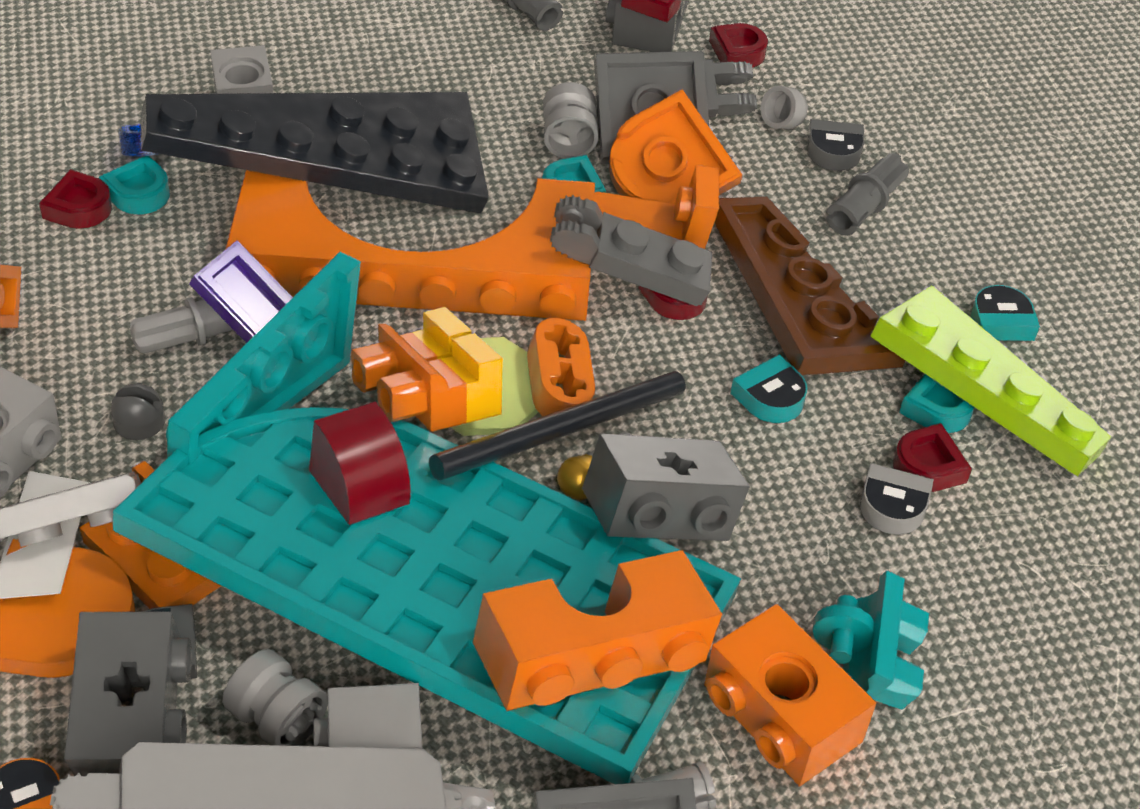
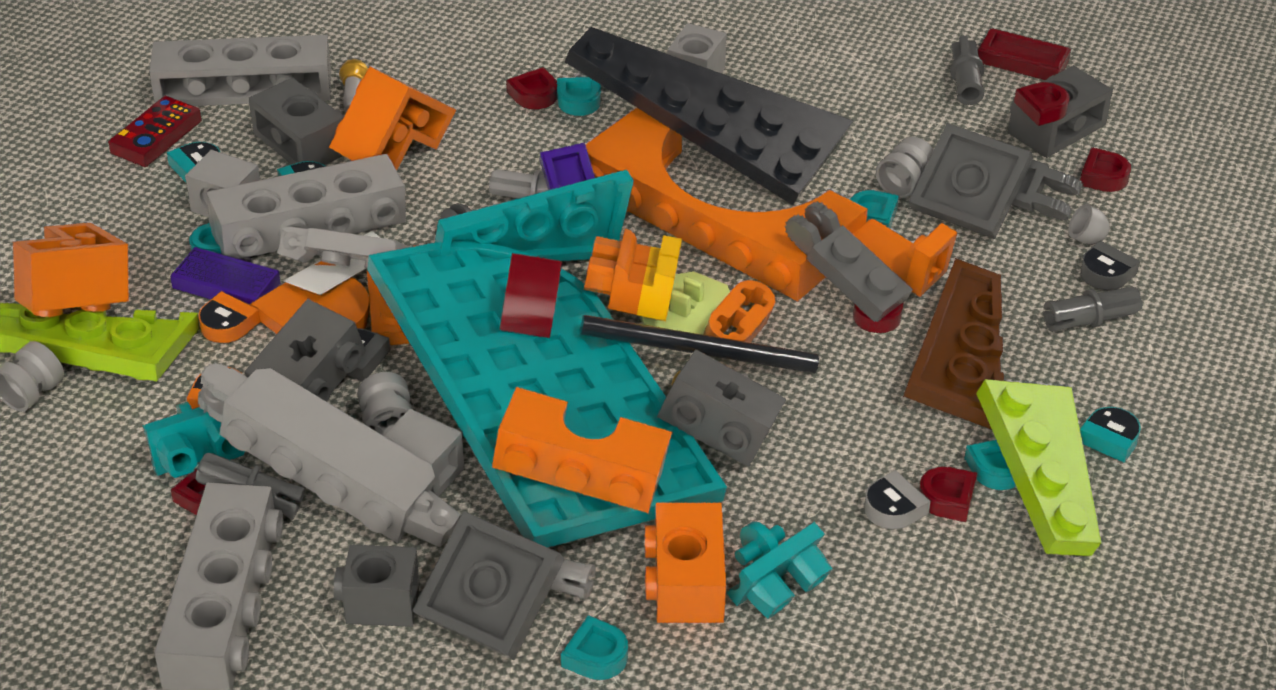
camera: 40 degrees right, 5 degrees down
(660, 150) = (963, 205): orange tile -> none
(771, 391) = (877, 398): tile -> none

